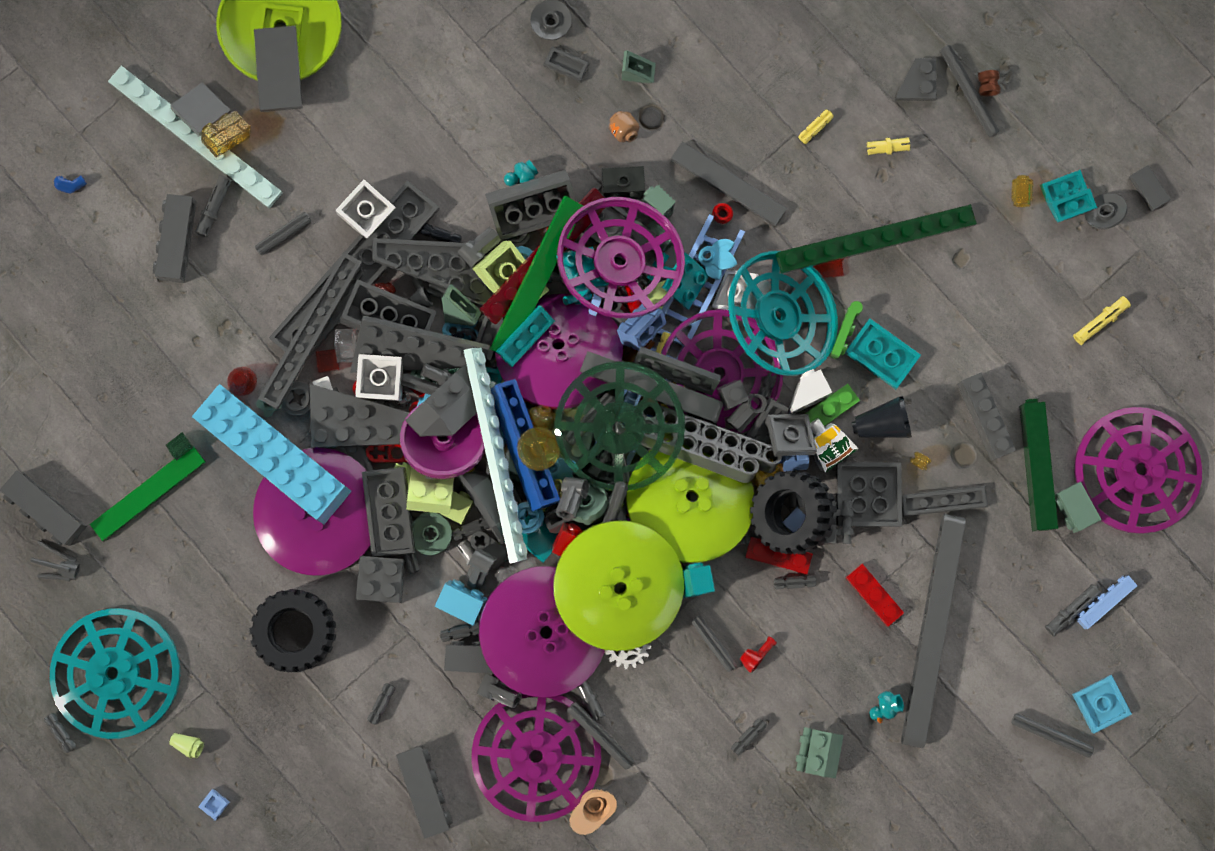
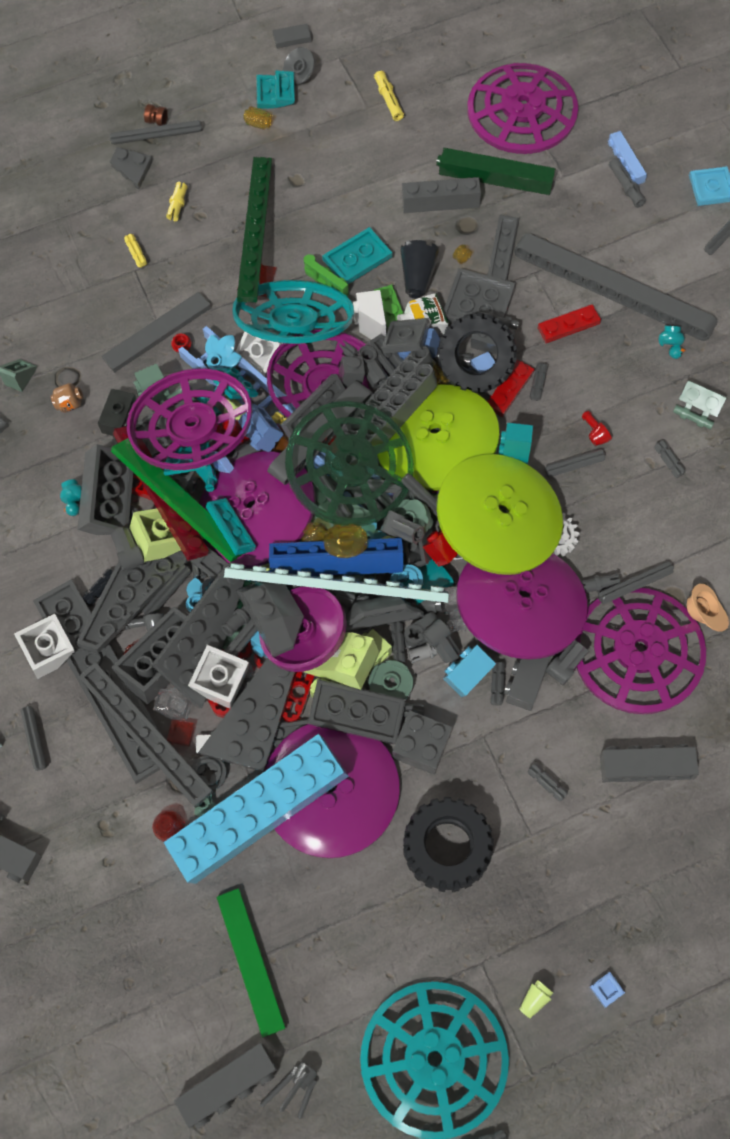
camera: 65 degrees left, 15 degrees down
(179, 446) = (212, 910): clear green tile -> none
(458, 308) = (179, 587): sand green slope -> none
(1076, 507) = (542, 151): sand green brick -> none

